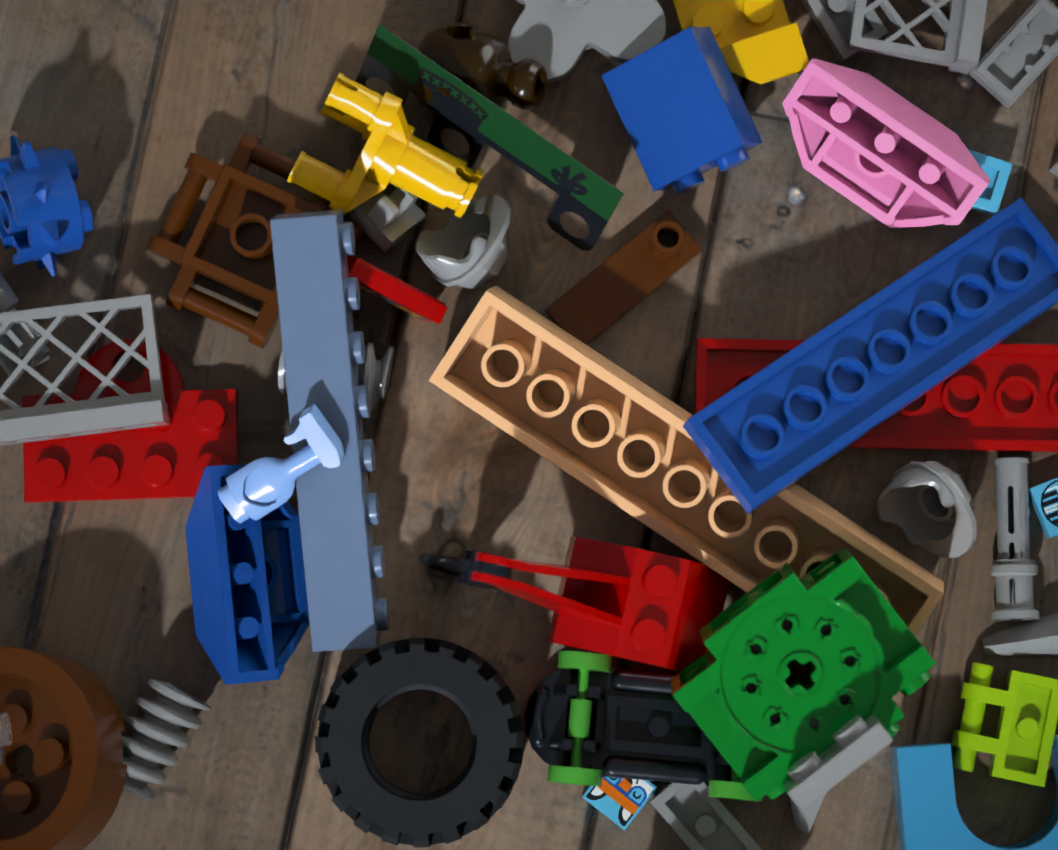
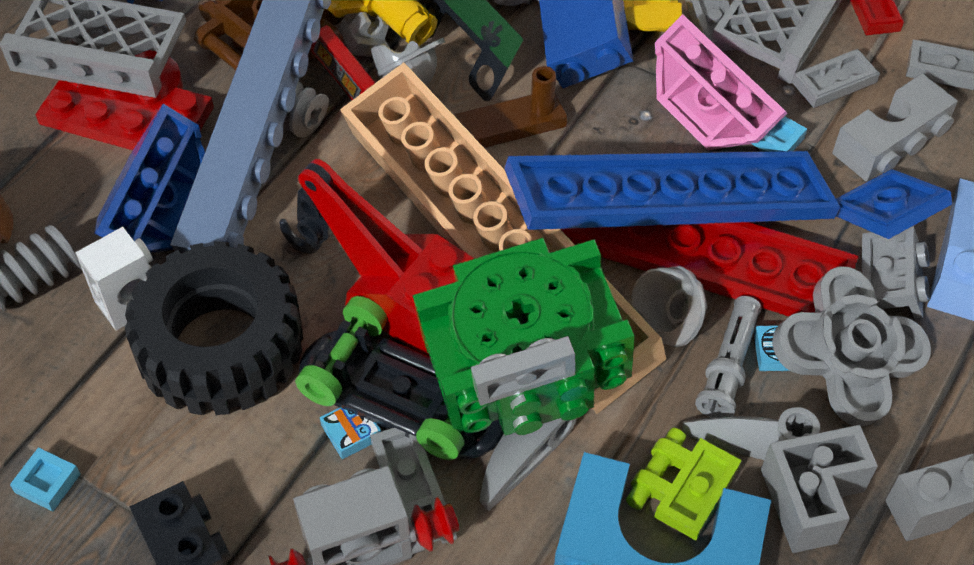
camera: 20 degrees right, 30 degrees down
(271, 480) = (198, 116): light blue piece -> none
(279, 721) = (113, 270): none -> white brick

